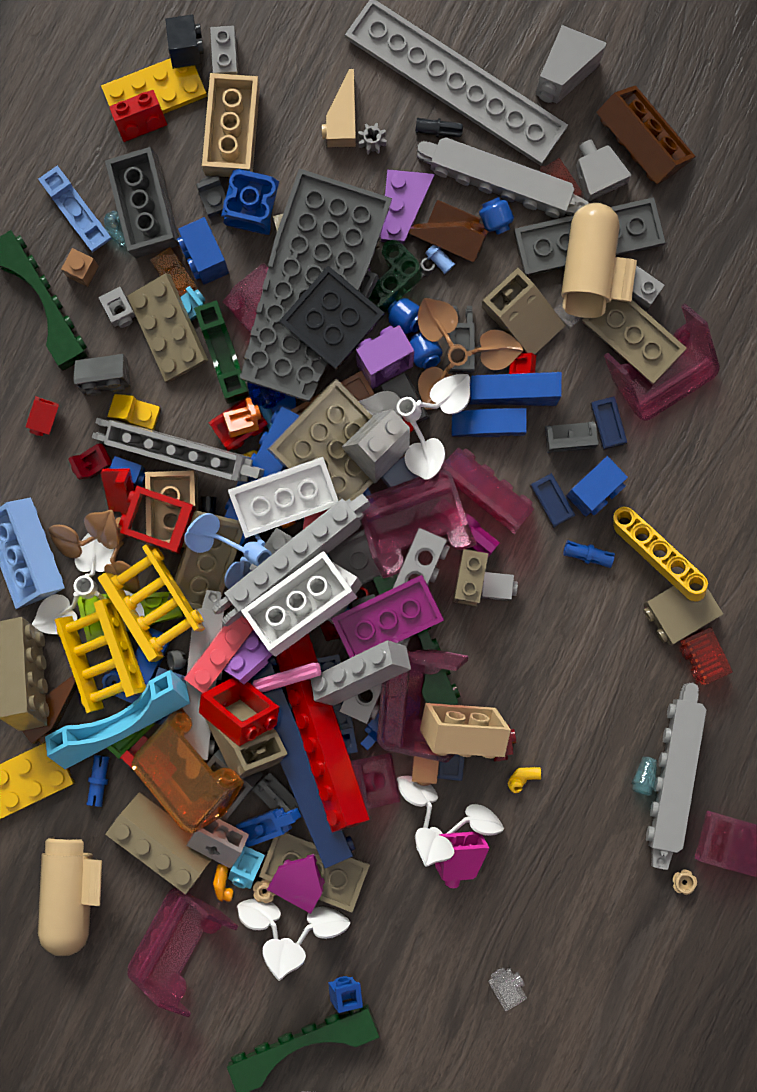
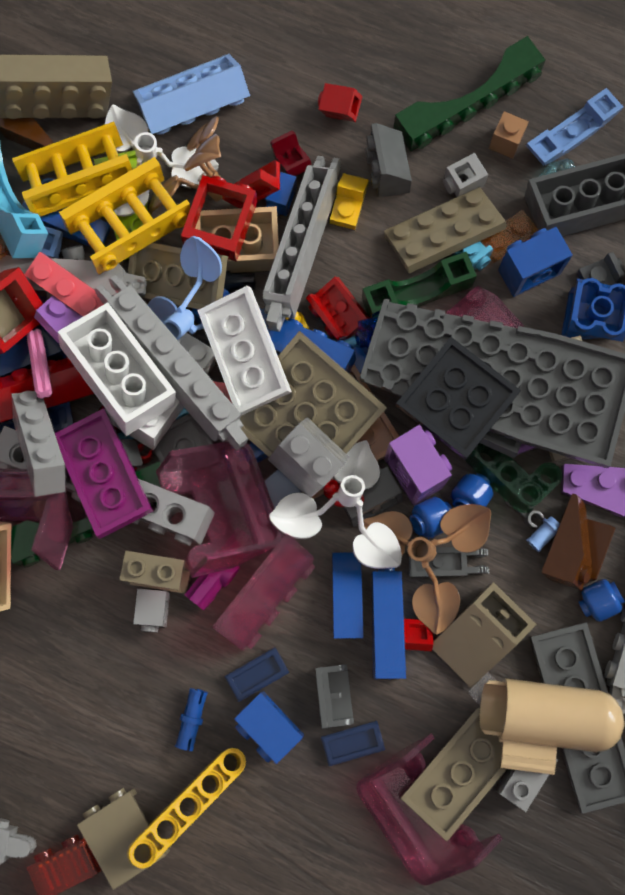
camera: 90 degrees right, 5 degrees down
(243, 419) = (339, 309): orange bracket -> none

